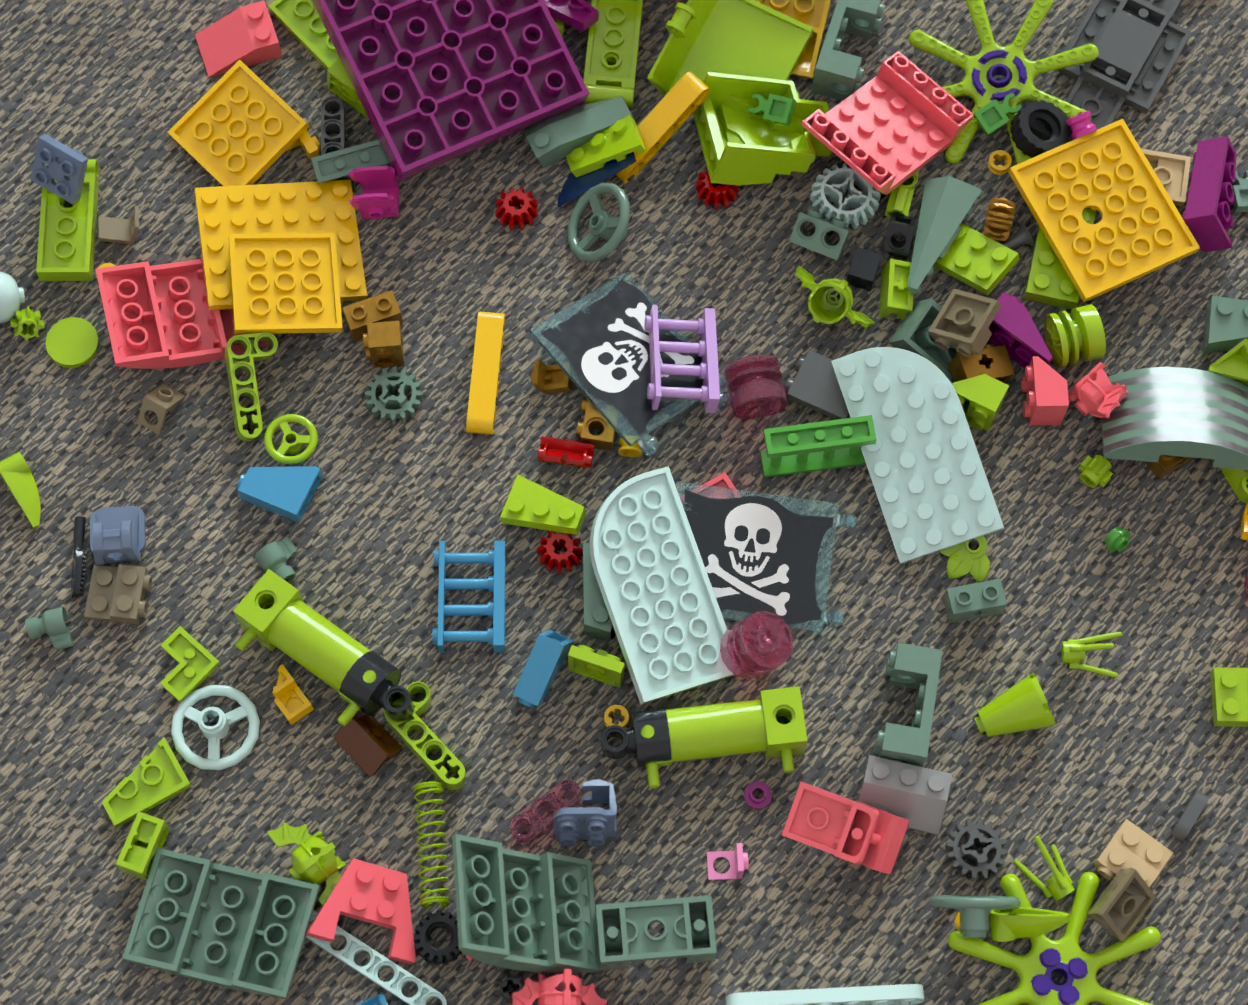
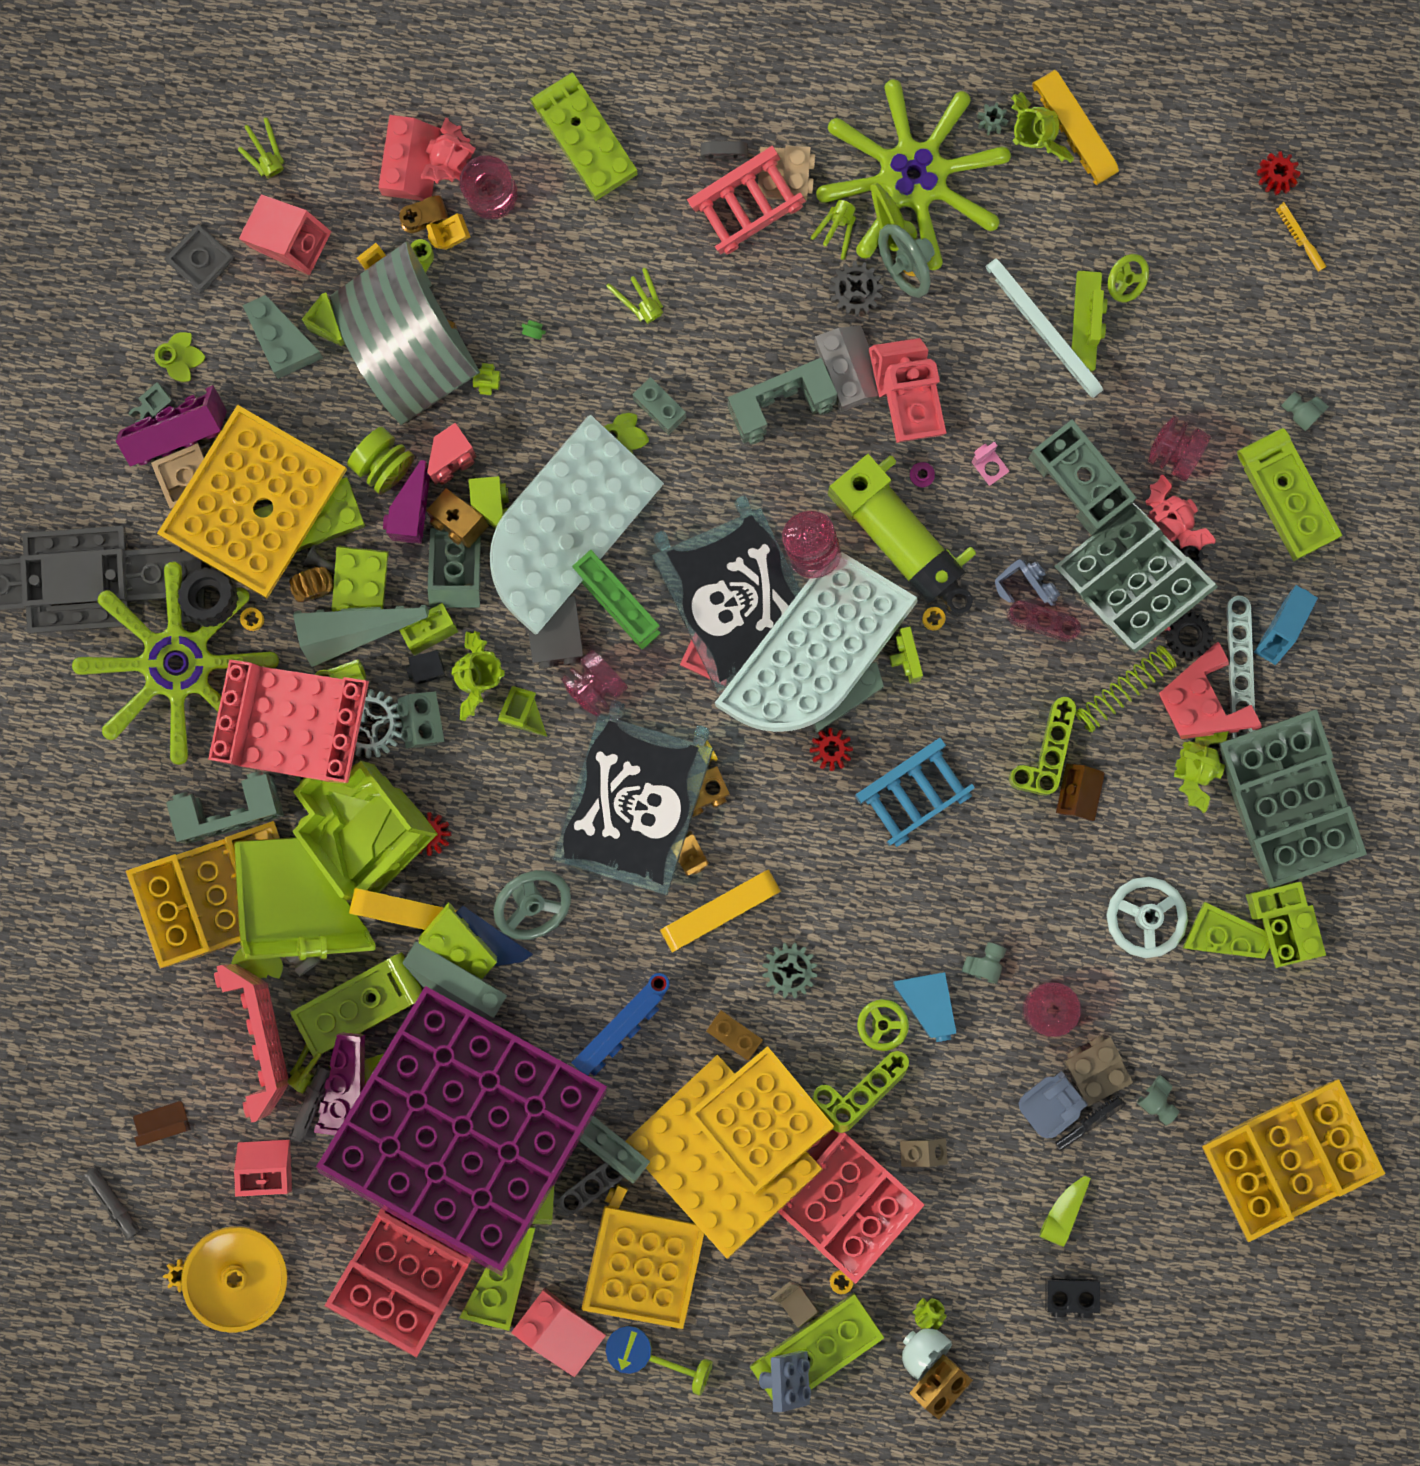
camera: 120 degrees left, 15 degrees up
(72, 342) = (917, 1267): lime tile -> none
(98, 838) = (1294, 936): none -> lime slope
(179, 85) = (631, 1349): none -> piece
(193, 666) = (1111, 968): lime plate -> none
(202, 596) = (1040, 998): none -> clear pink wheel
(281, 619) = (1039, 871): lime piece -> none
(290, 698) = (1086, 876): yellow slope -> none
(379, 194) = (622, 1119): dark pink piece -> none
(384, 344) = (756, 1005): pearl gold brick -> none
(445, 231) = (624, 1024): none -> blue hinge
(526, 208) = (549, 986): red gear -> none
(541, 508) = (808, 785): lime wing -> none
(542, 667) = (933, 697): dark azure slope -> none
(565, 452) = (742, 790): red hinge -> none
(706, 348) = (586, 744): lavender fence -> none
(771, 319) = (522, 711): none -> lime slope
(776, 109) = (329, 826): bright green plate -> none
(903, 225) = (378, 655): black brick -> none
(964, 322) = (435, 547): dark tan plate -> none
(994, 115) = (219, 643): bright green plate -> none
(1016, 710) = (728, 322): lime cone -> none
(1081, 124) = (185, 563): dark pink wheel -> none
(1097, 393) = (427, 408): coral helmet -> none
(1122, 903) = (832, 158): dark tan slope -> none
(1150, 788) = (725, 187): none -> coral fence

